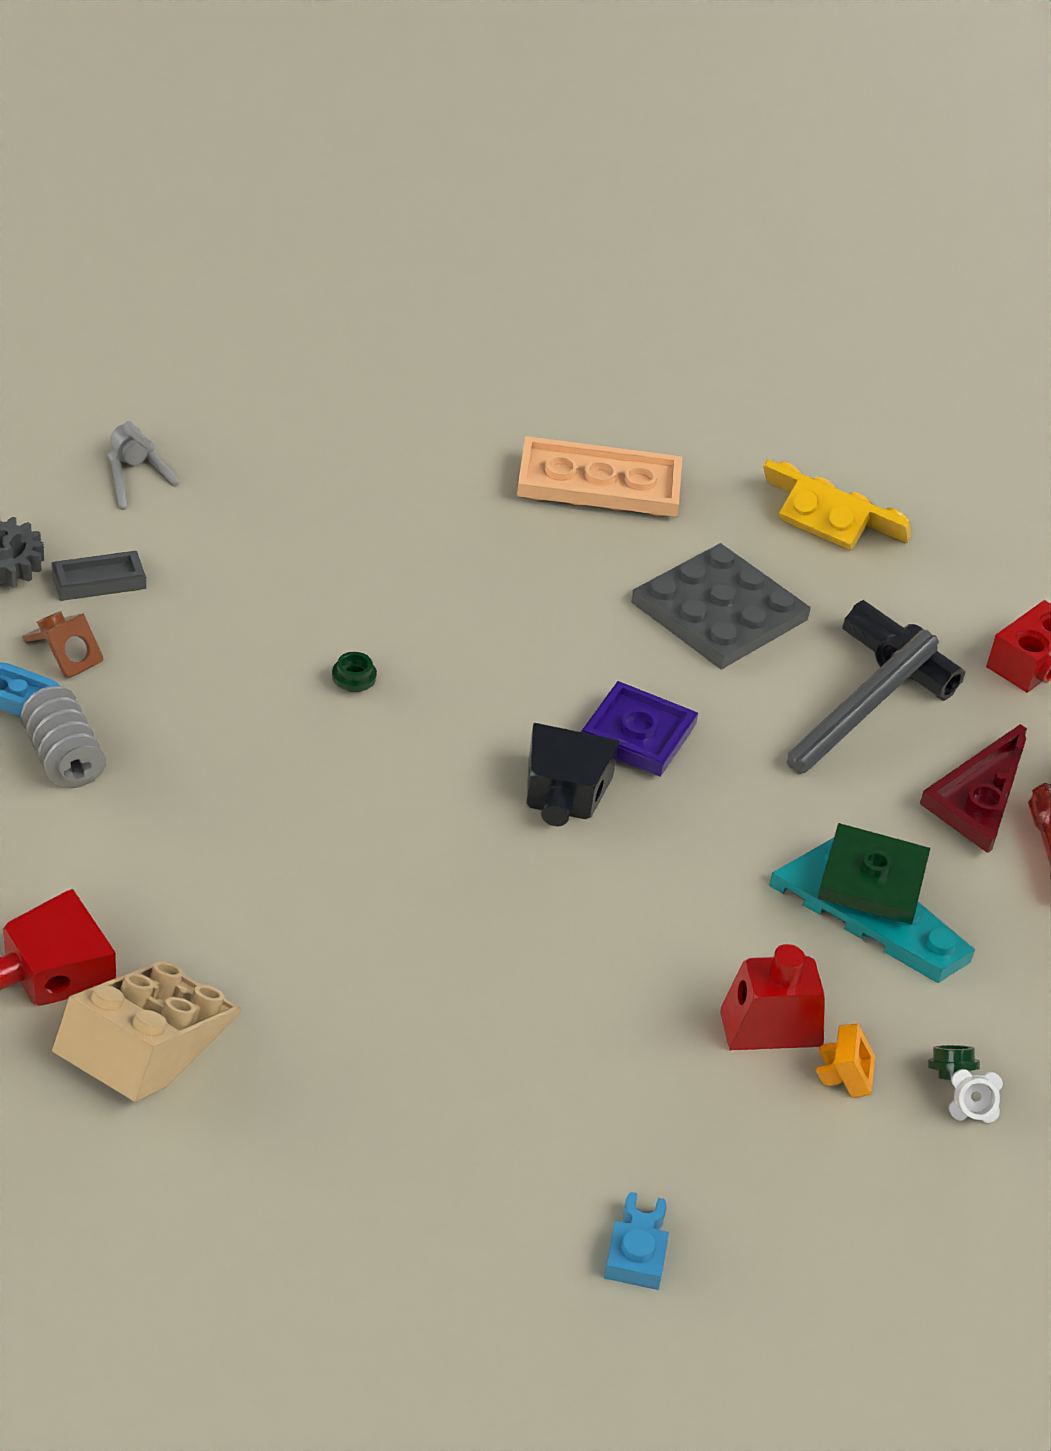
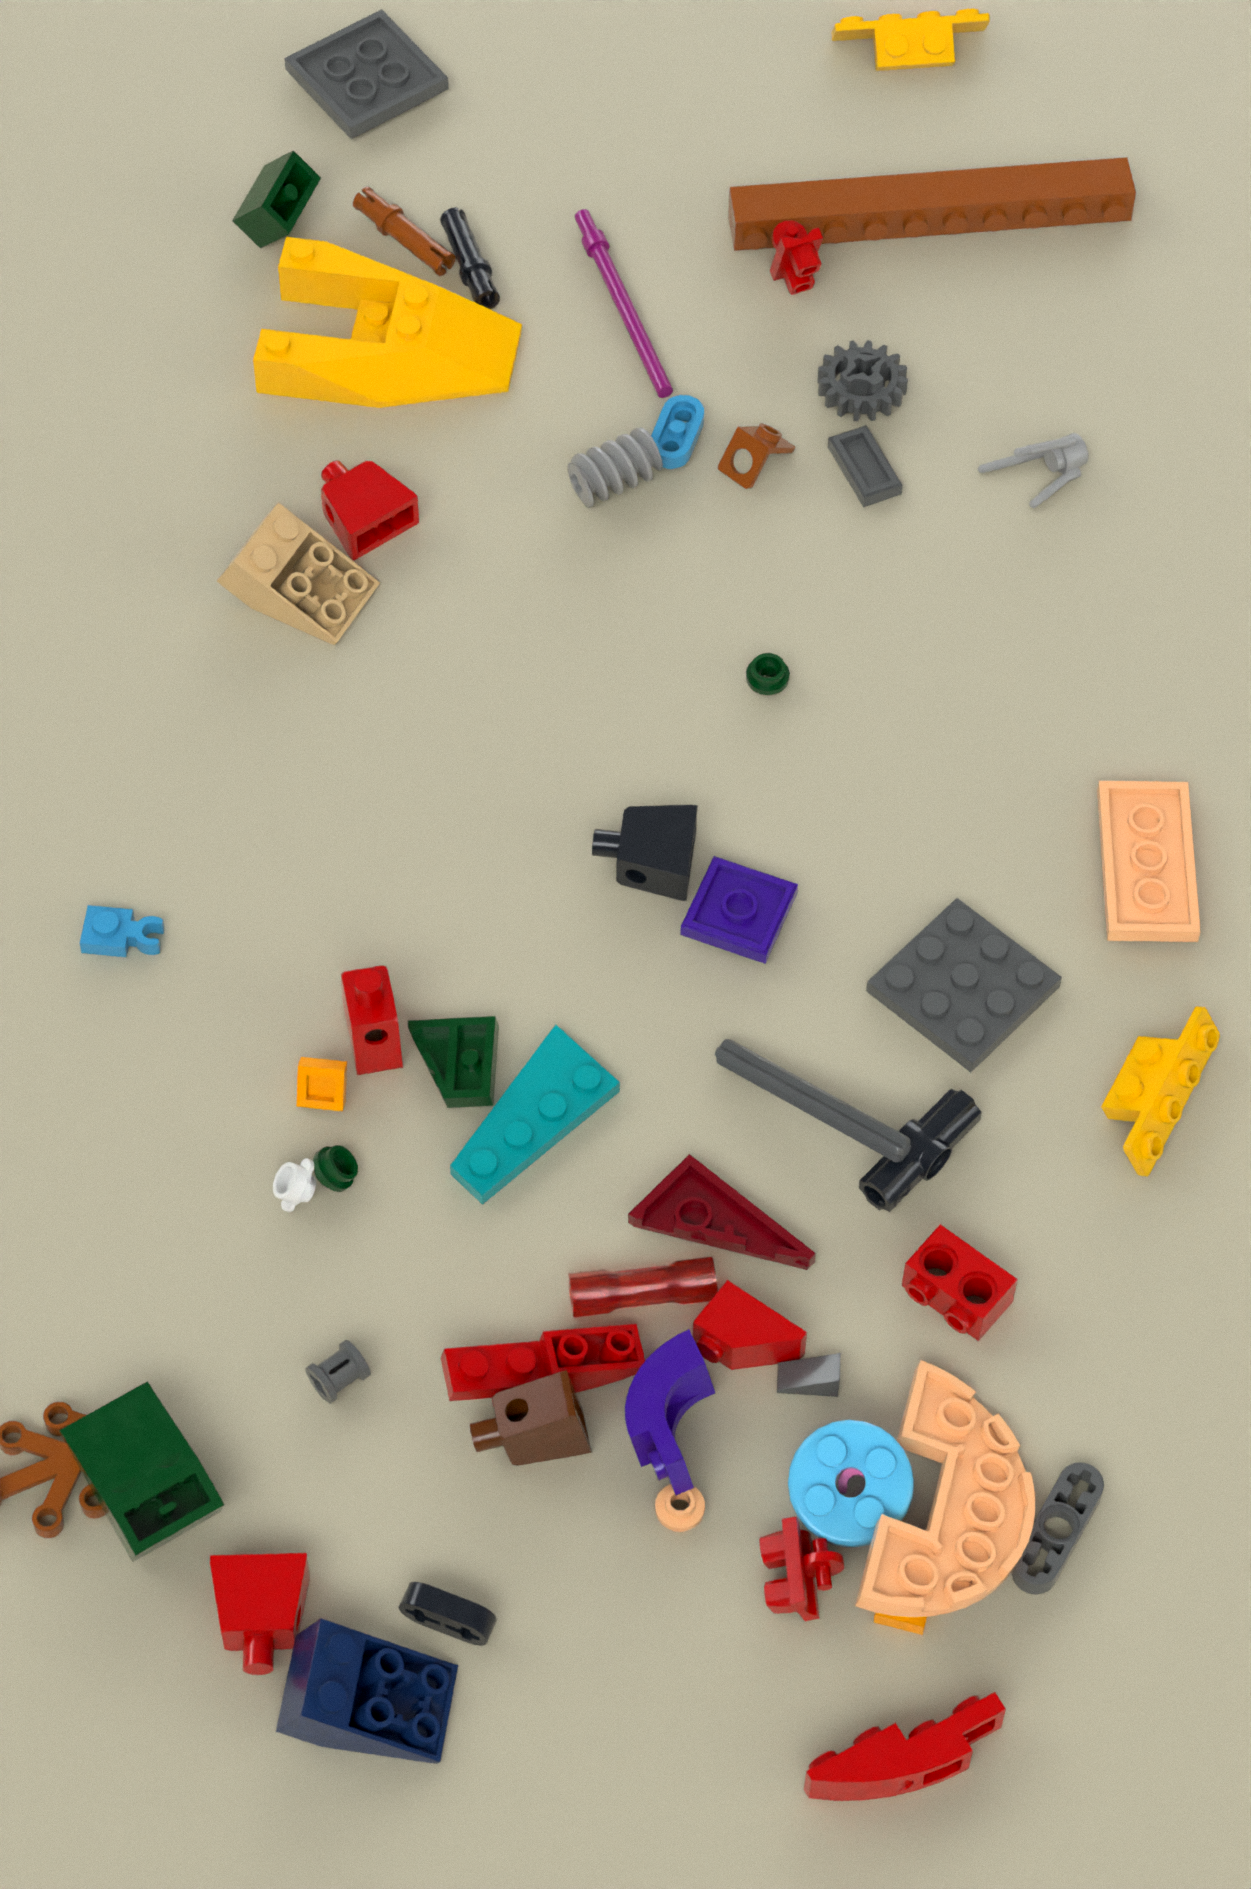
camera: 90 degrees right, 15 degrees up
(834, 942) = (460, 1057): none -> dark green wing
(874, 873) = (551, 1098): dark green plate -> none

